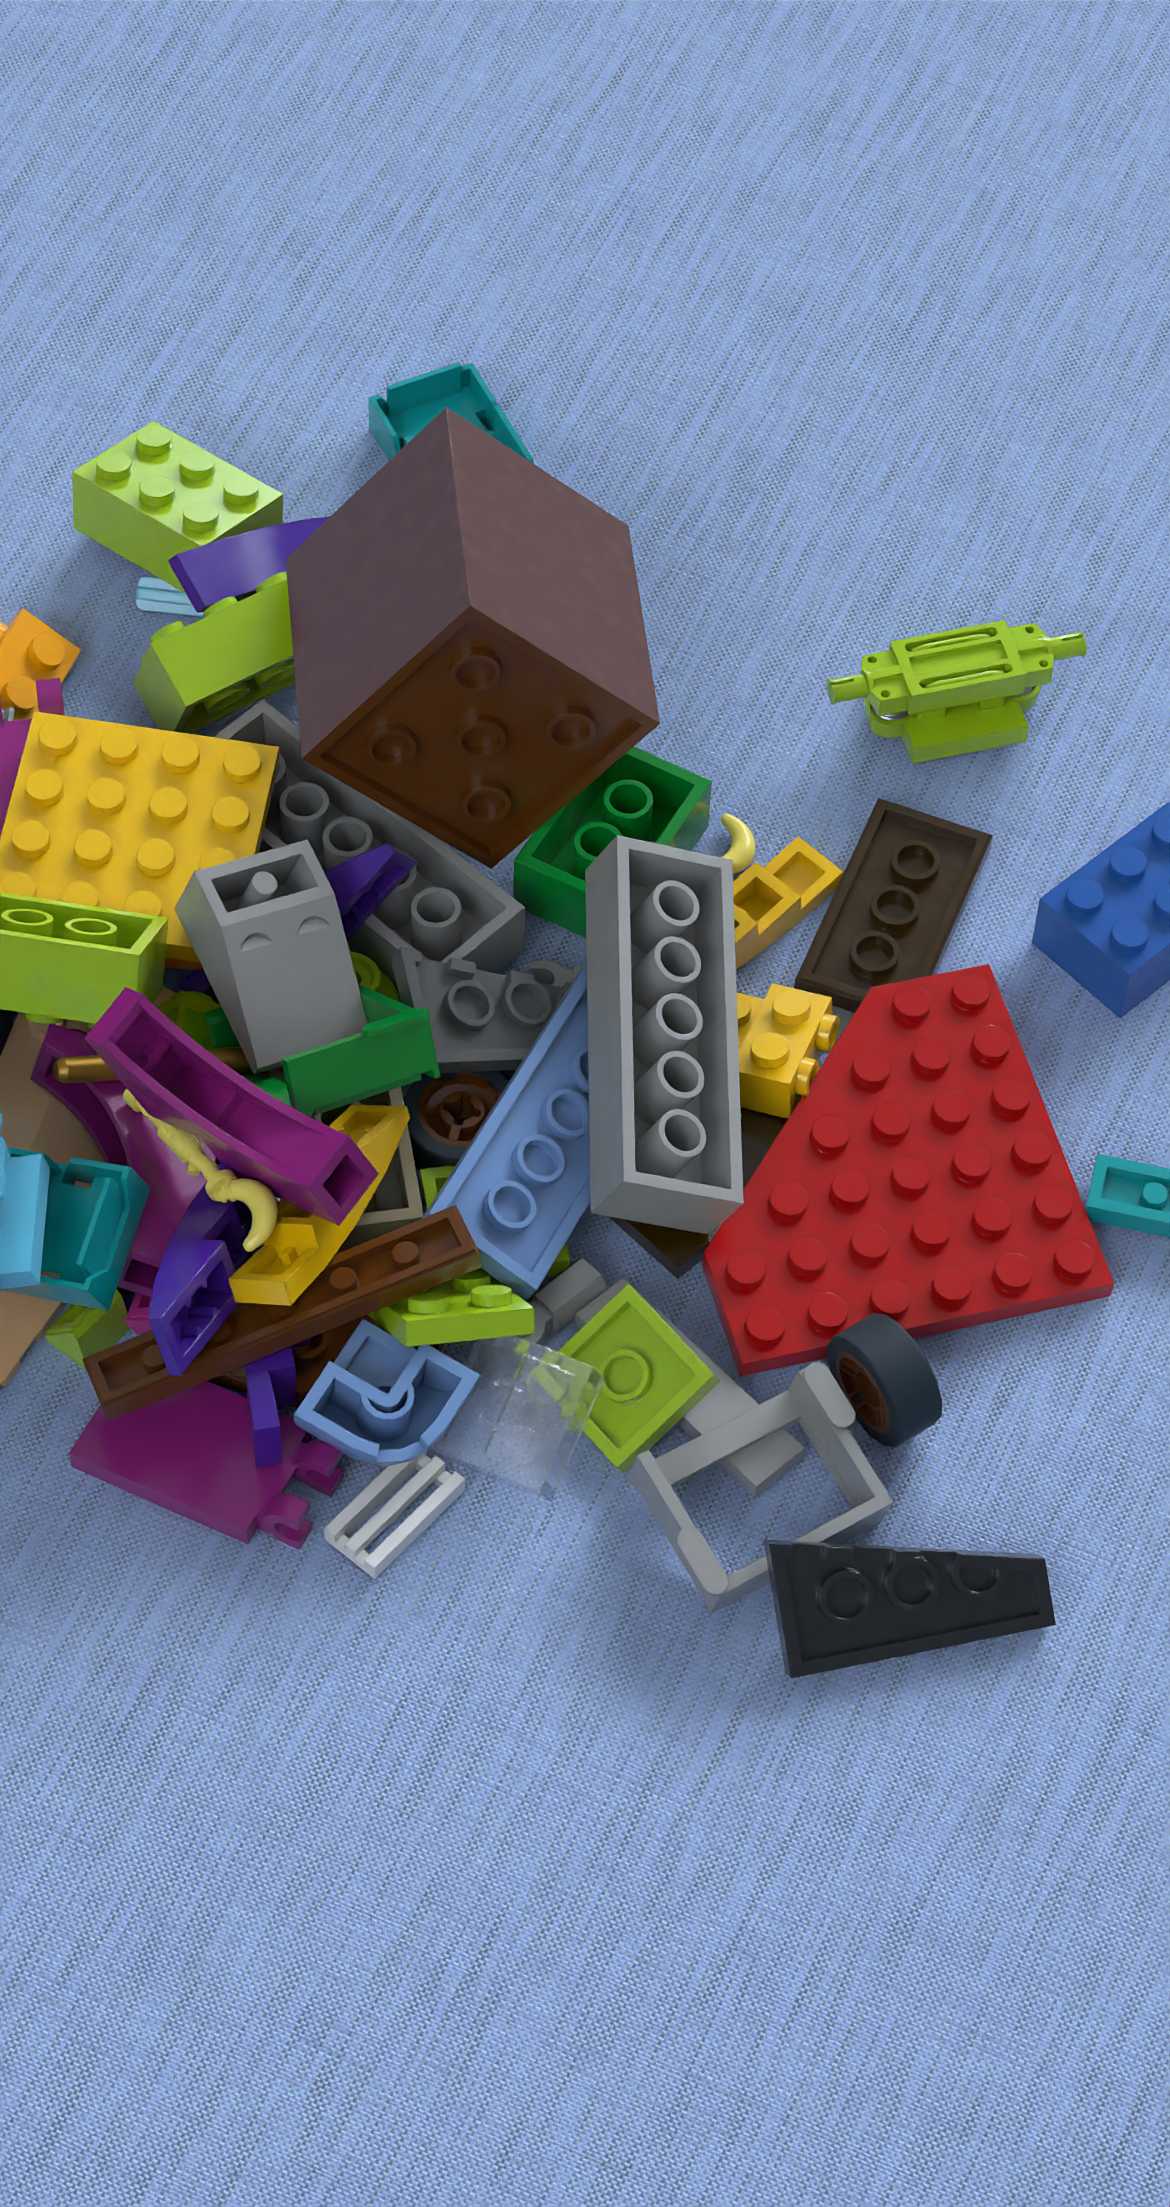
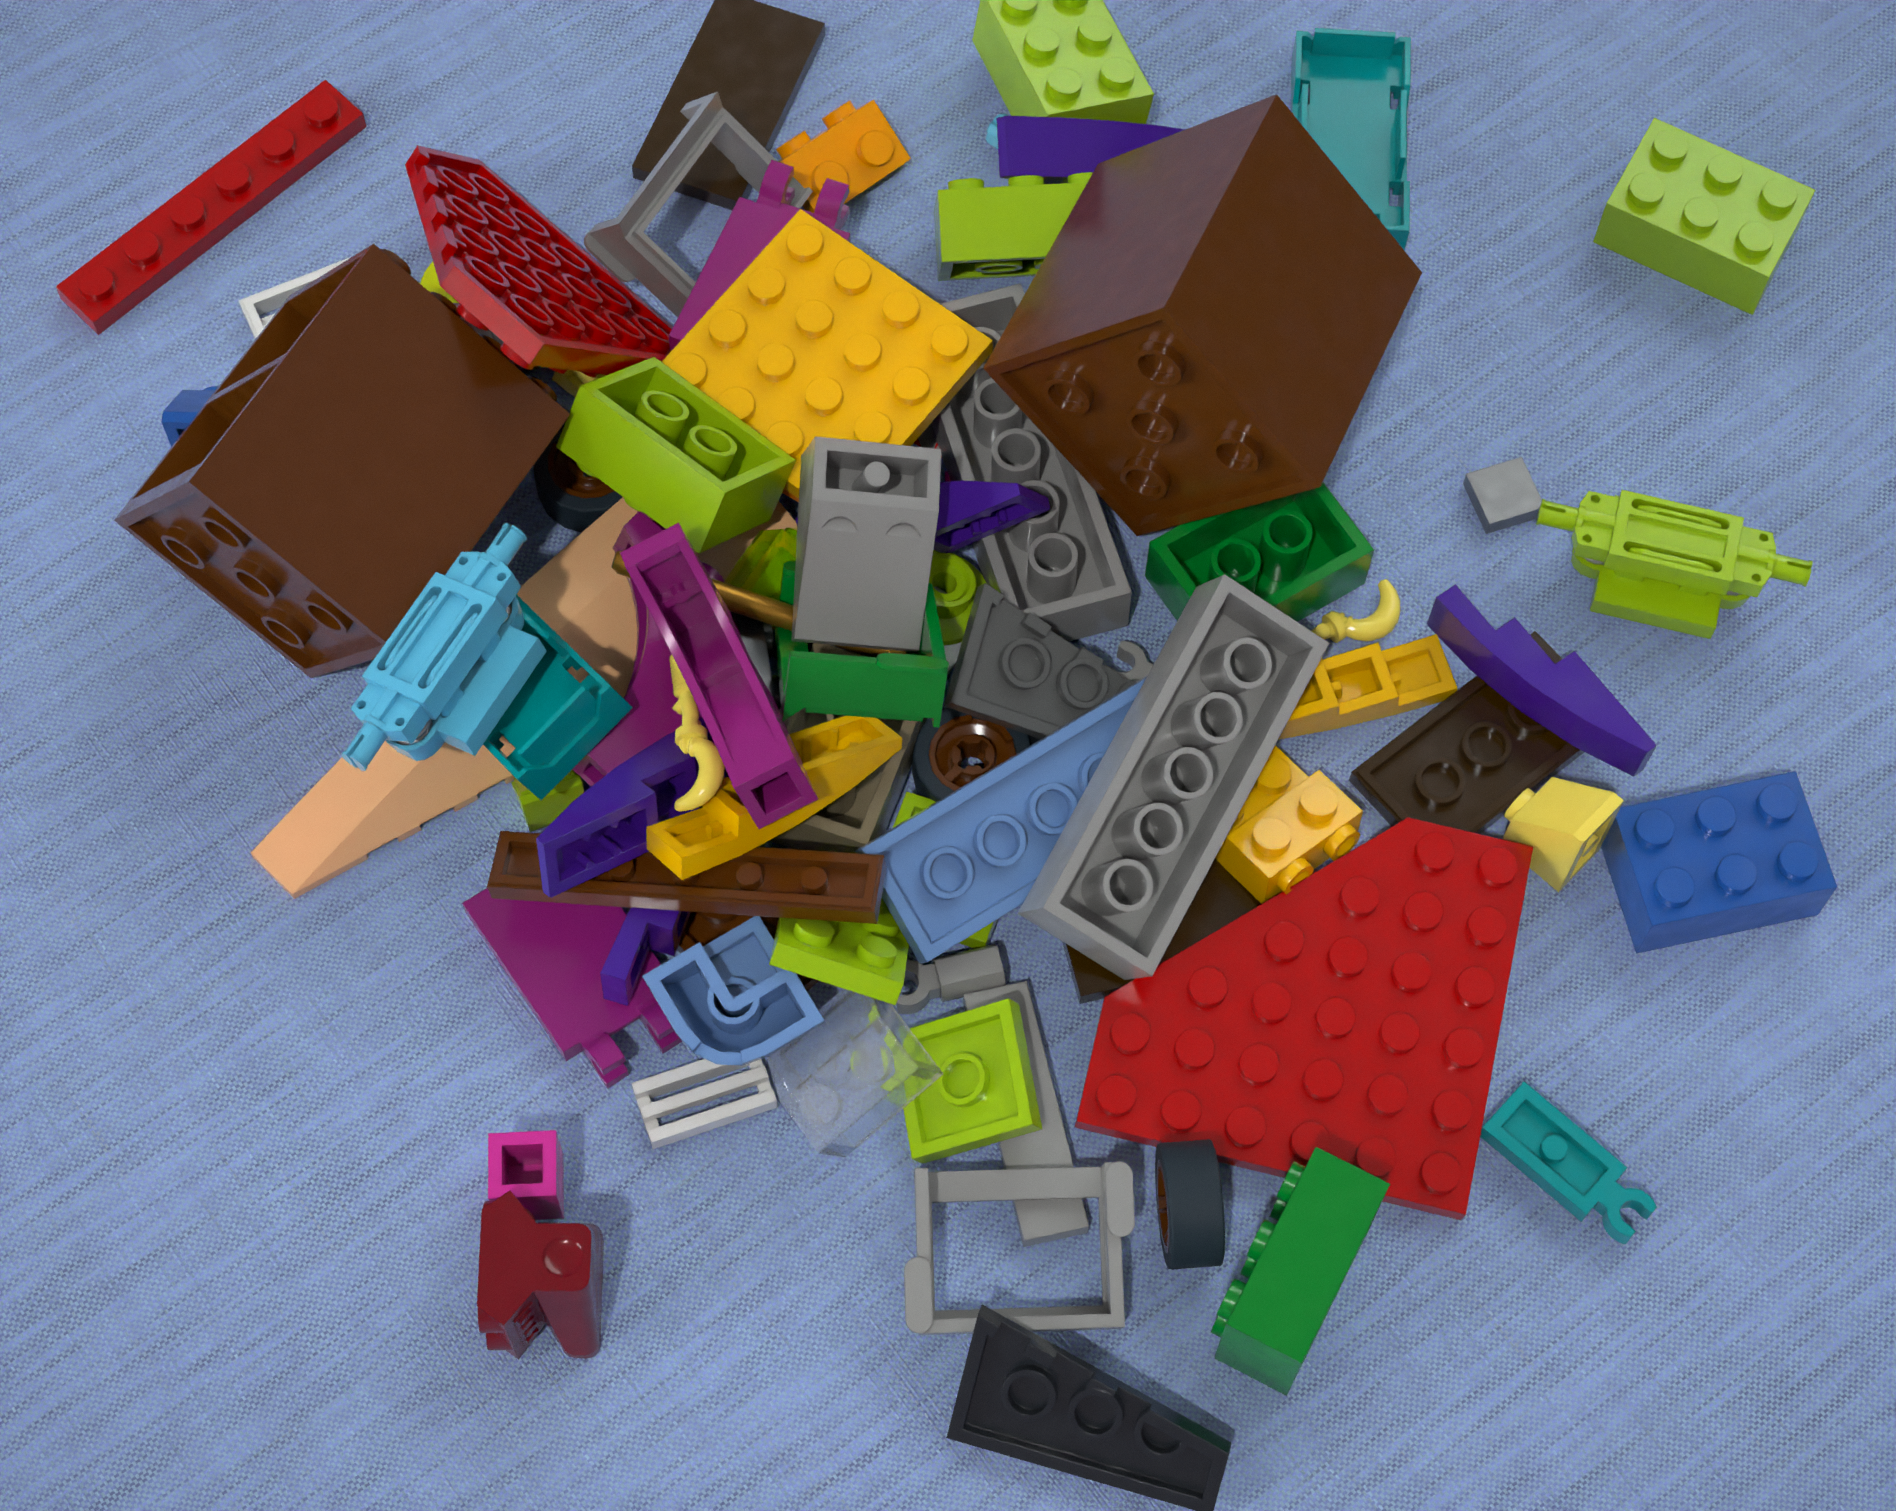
camera: 30 degrees right, 10 degrees up
(284, 1643) = (529, 1167): none -> dark pink brick
(352, 1717) = (538, 1277): none -> dark red piece
(781, 703) = (1503, 495): none -> flat silver tile
(812, 405) = (1703, 215): none -> lime brick
(932, 835) = (1557, 696): none -> dark purple slope
(1004, 932) = (1563, 826): none -> light yellow slope
(1010, 1385) = (1296, 1268): none -> green brick

